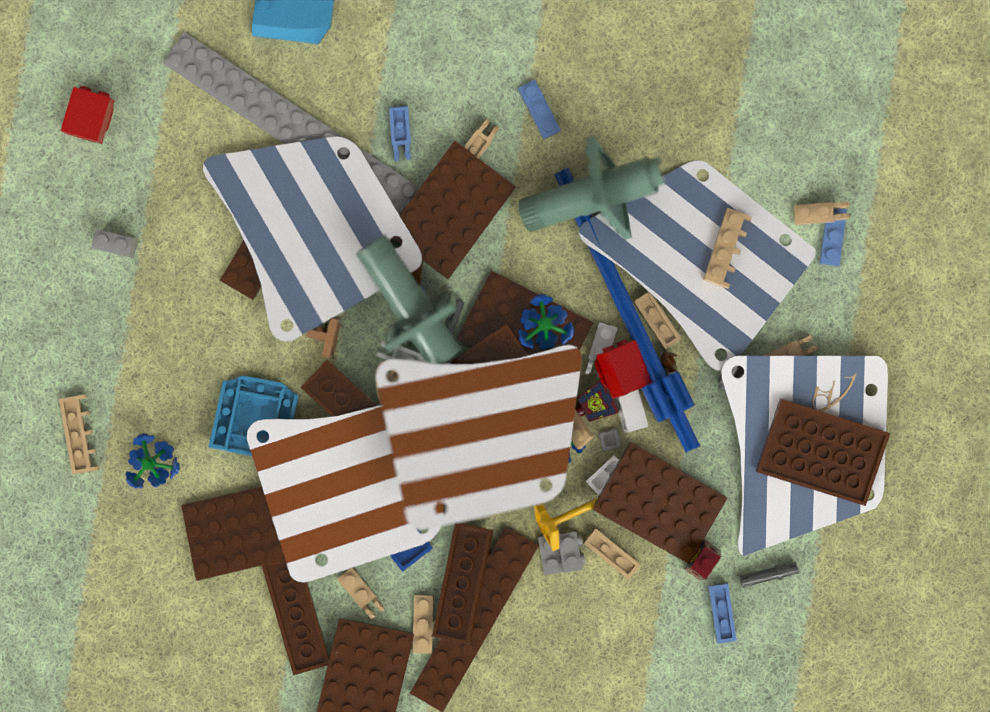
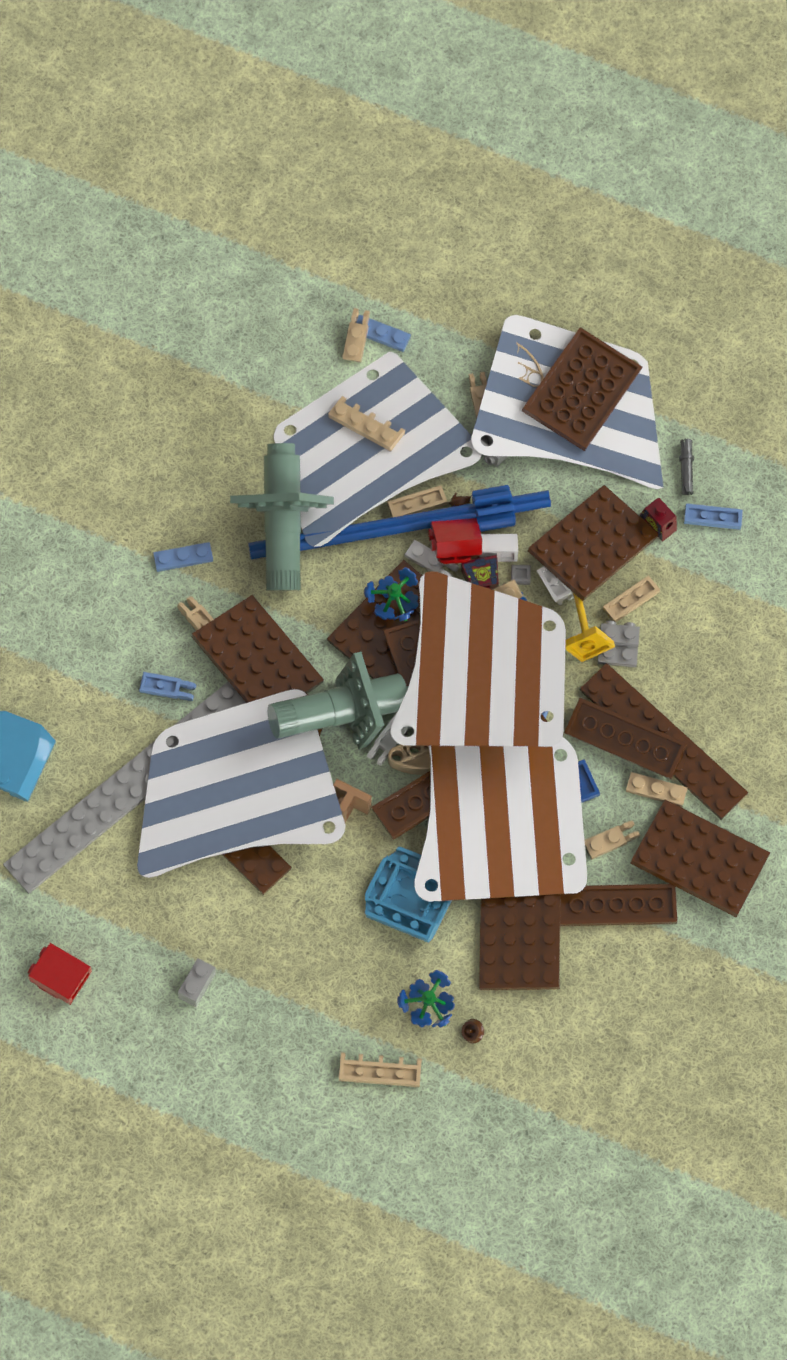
camera: 75 degrees left, 20 degrees down
(138, 509) = (472, 1031): none -> reddish brown hat

